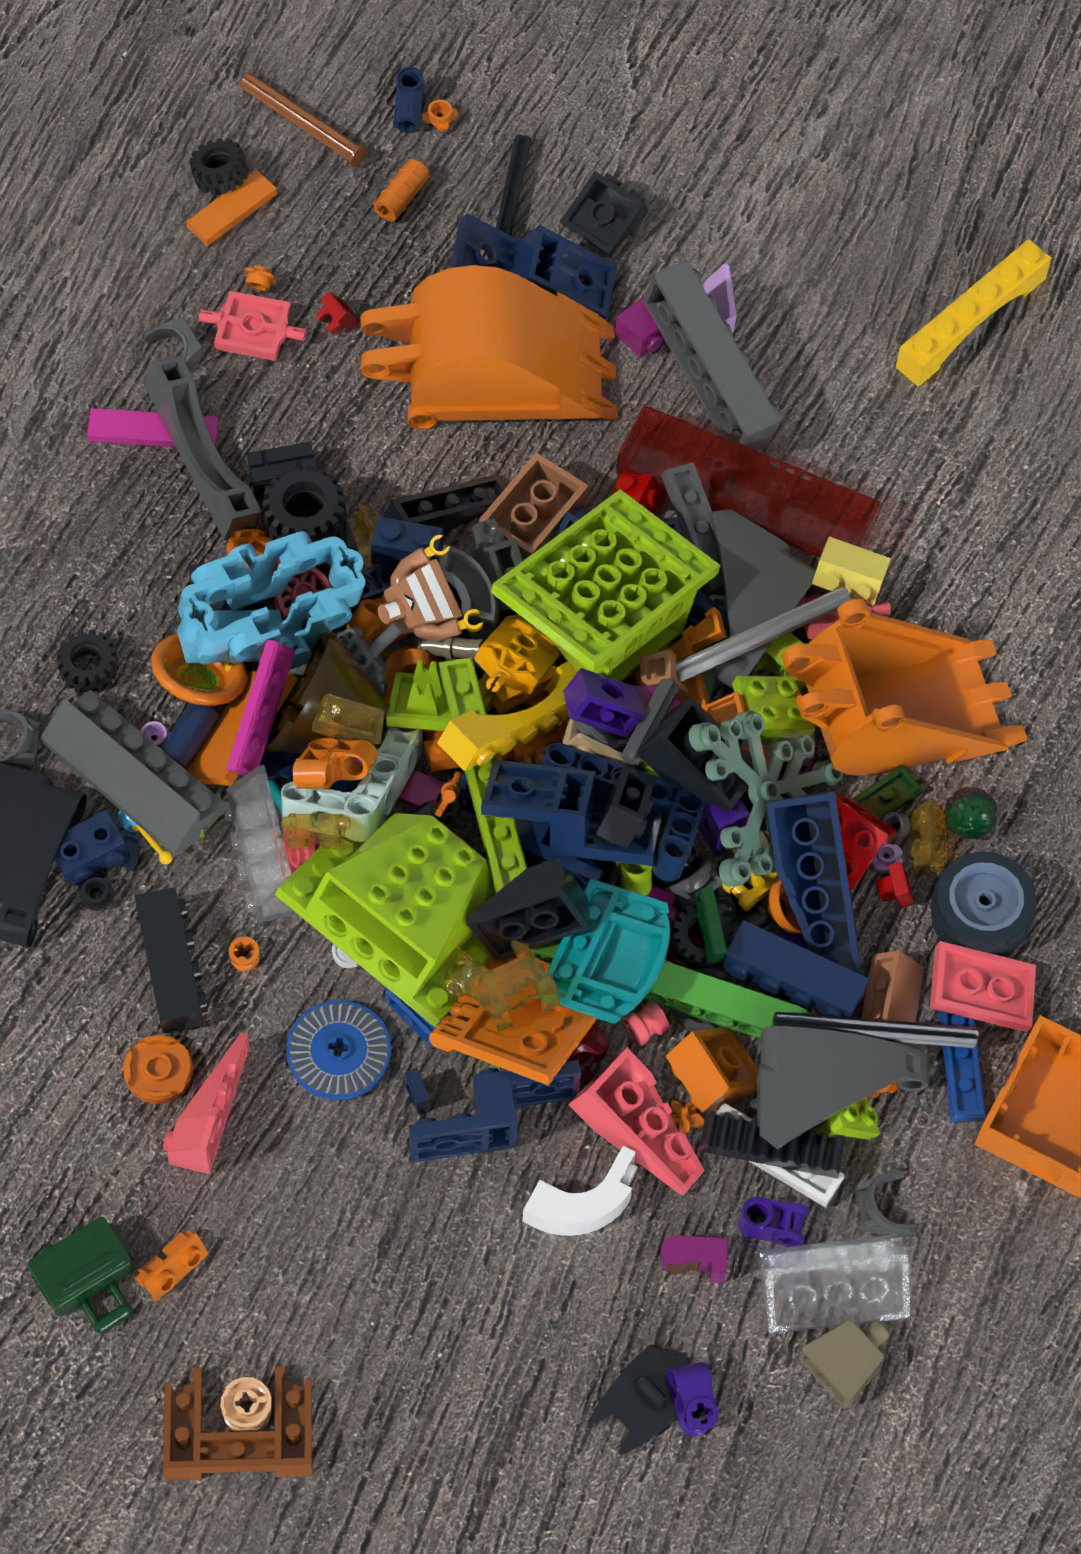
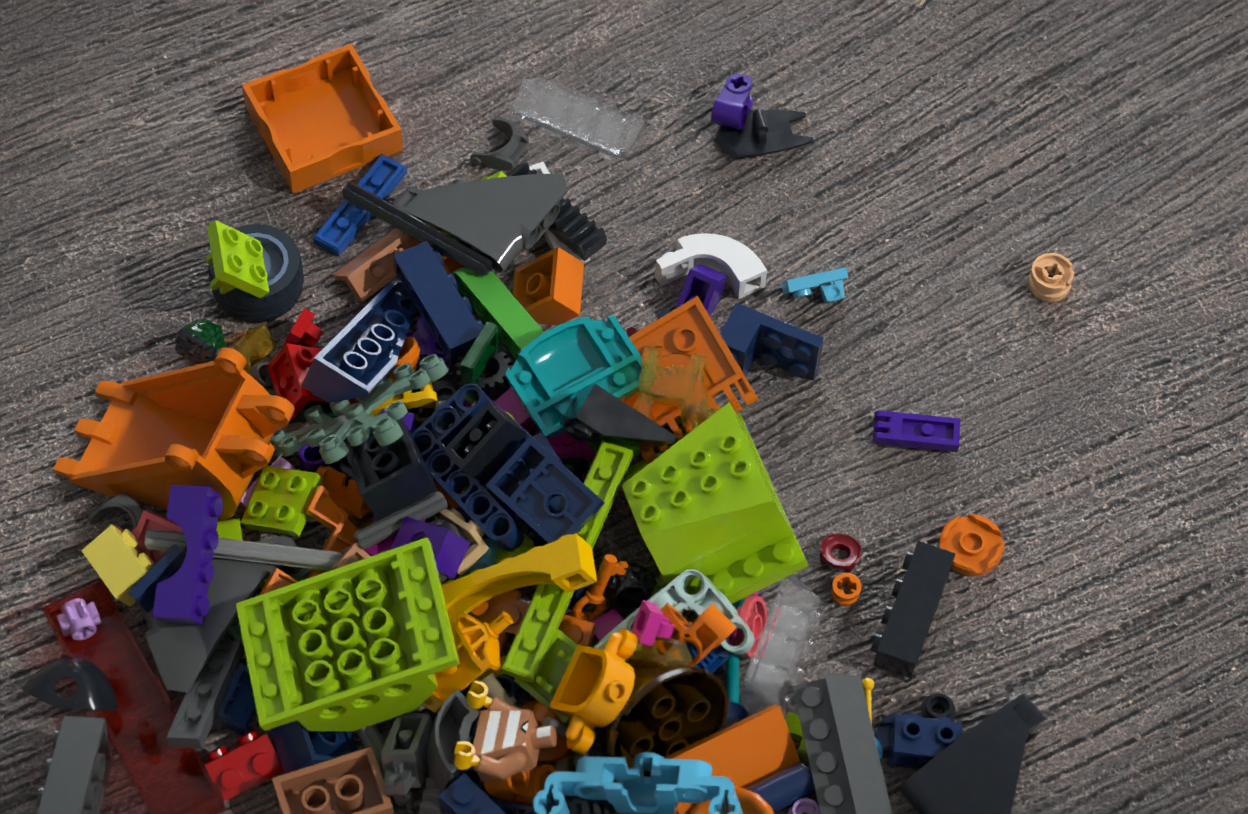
camera: 145 degrees left, 5 degrees down
(81, 1269) = (1119, 430): dark green piece -> none
(182, 1255) = (1036, 399): orange hinge -> none
(191, 1452) = (1043, 233): dark orange wedge -> none
(202, 1122) = (967, 474): coral wedge -> none
(261, 708) = (714, 728): dark pink tile -> none
(266, 970) = (842, 542): none -> dark red piece
(275, 1146) = (916, 431): none -> dark purple hinge
(329, 833) = (733, 580): clear yellow hinge -> none
(358, 1067) = (821, 496): piece -> none
(364, 726) = (651, 623): none -> dark pink tile
(377, 666) = (595, 688): none -> light orange piece
(417, 1091) = (783, 403): dark blue tile -> none
(479, 1237) = (829, 284): none -> medium azure hinge
(571, 1153) = (705, 284): none -> dark purple slope
(630, 1113) = (631, 283): coral wedge -> none
(686, 1117) = (596, 280): orange plant -> none
(695, 1254) = (660, 186): magenta leg -> none
(773, 563) = (184, 595): none -> dark purple arch
(776, 1221) = (589, 176): dark purple piece -> none
(792, 466) = (92, 685): none -> black piece
(807, 572) = (166, 567): none -> dark blue plate
(845, 1359) = (610, 70): dark tan torso -> none
(848, 522) = (78, 619): none -> lavender gear
(983, 986) = (311, 222): coral plate -> none
(990, 862) = (236, 261): none -> lime plate

